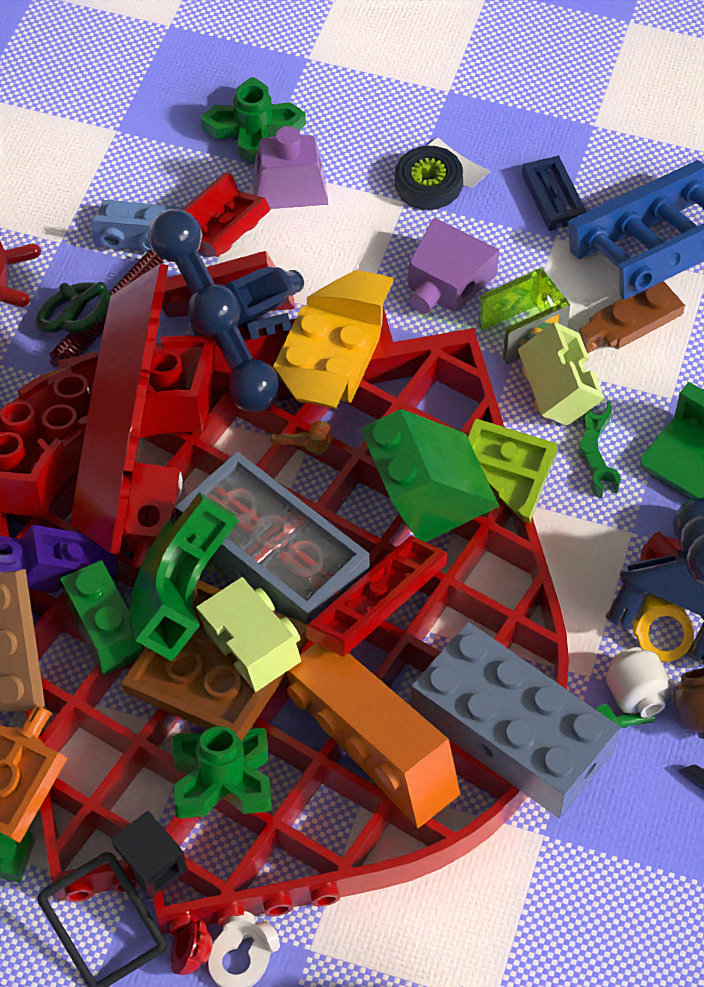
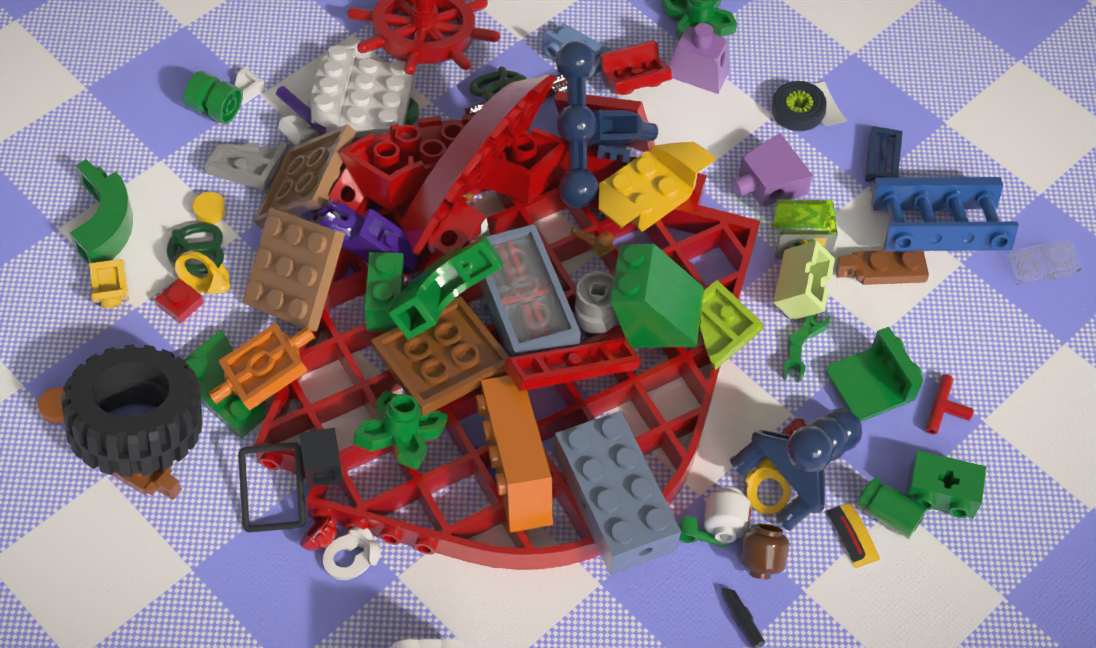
camera: 25 degrees right, 0 degrees up
(246, 626) = (467, 346): yellowish green brick -> none
(359, 506) = (593, 305): none -> light grey wheel

